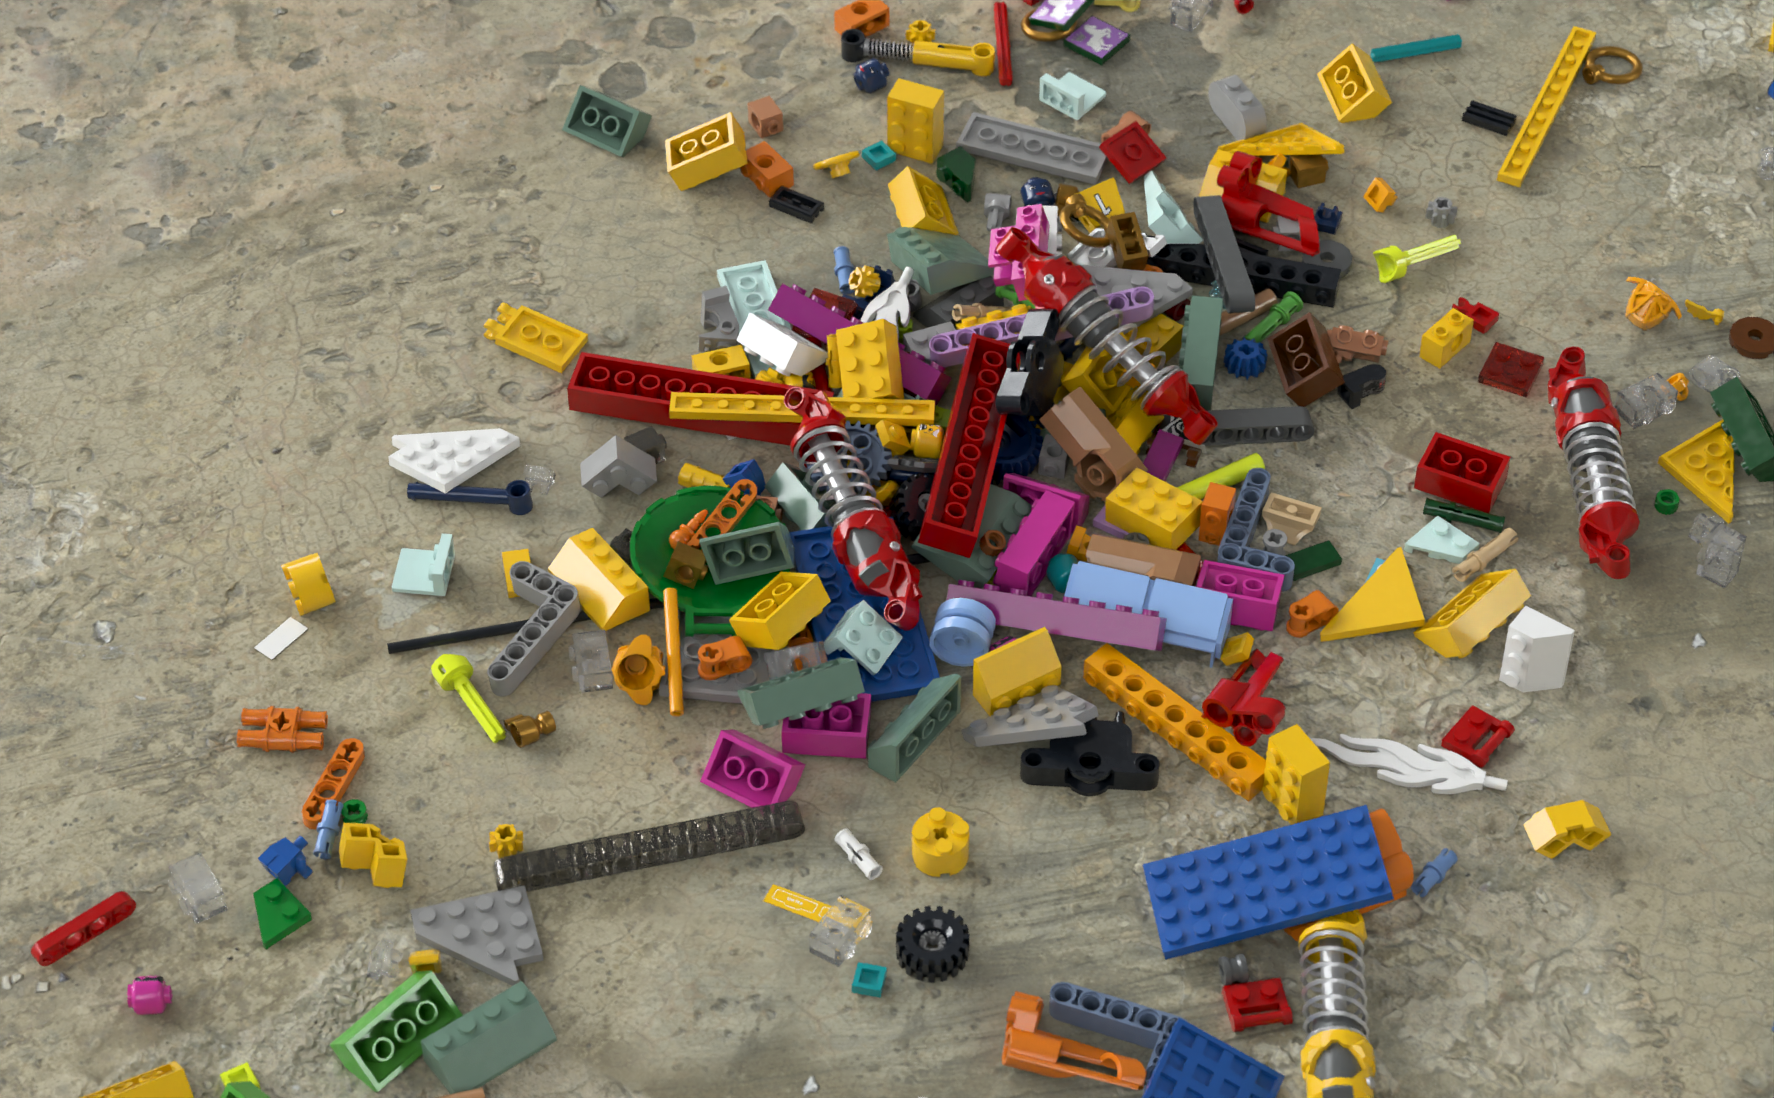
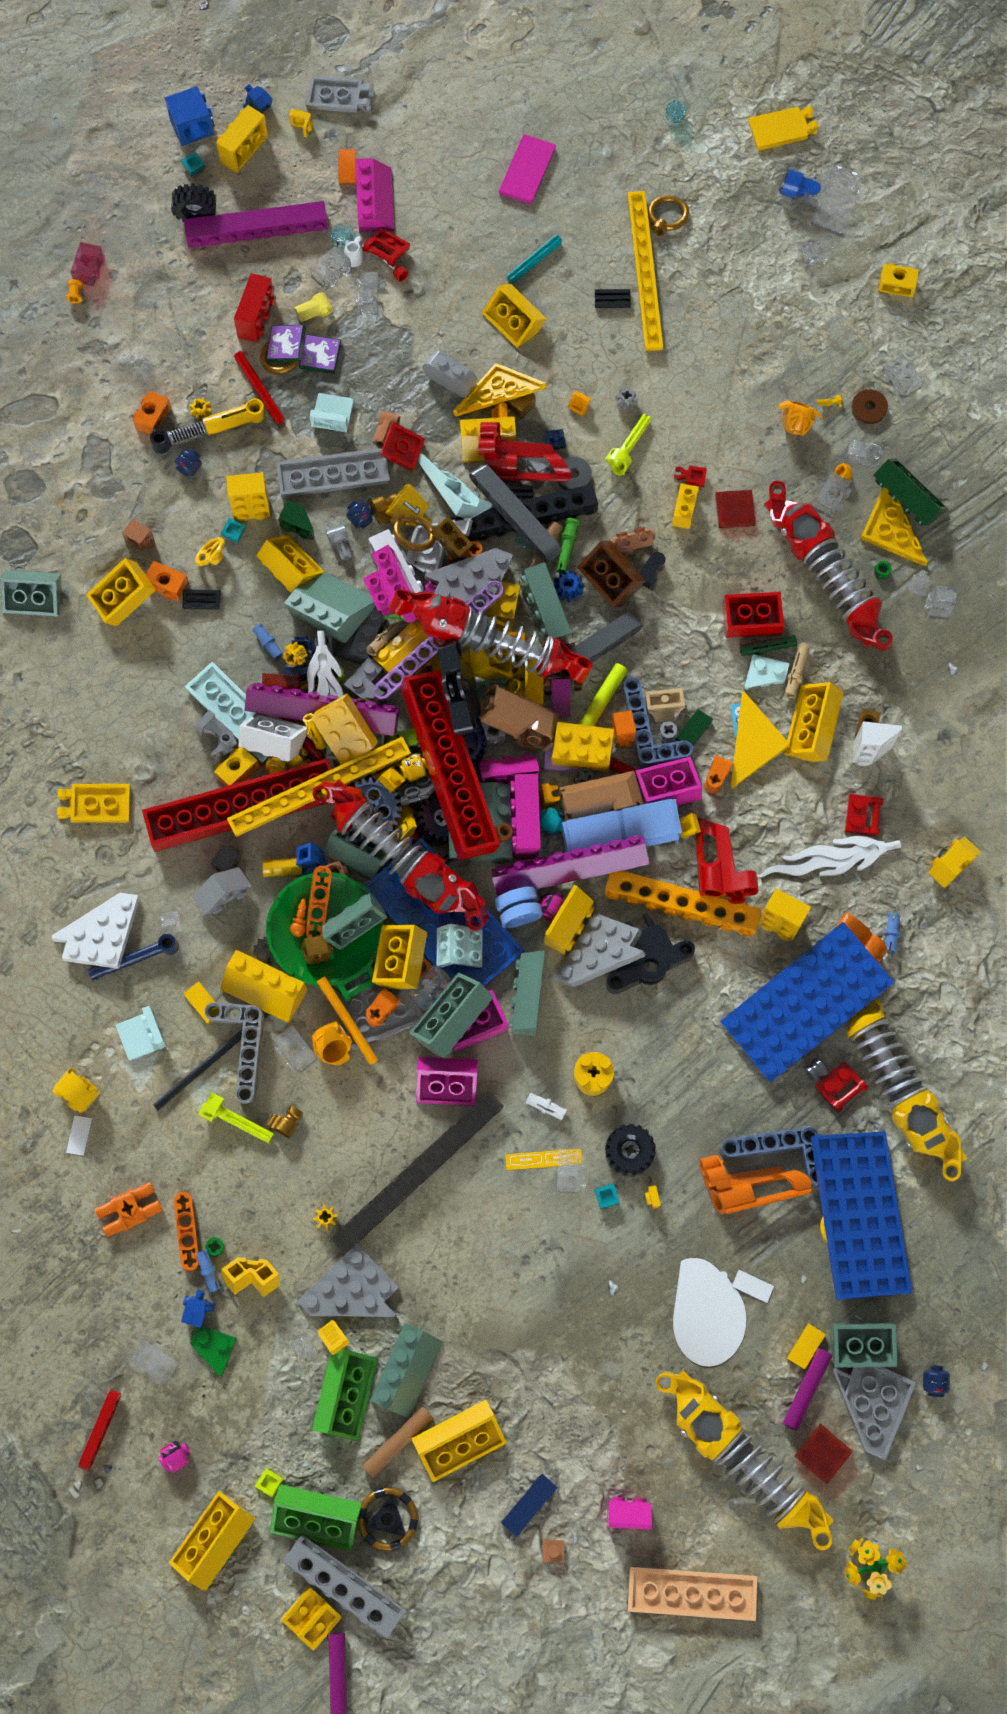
camera: 30 degrees left, 25 degrees up
(927, 1006) = (652, 1197): none -> yellow plate

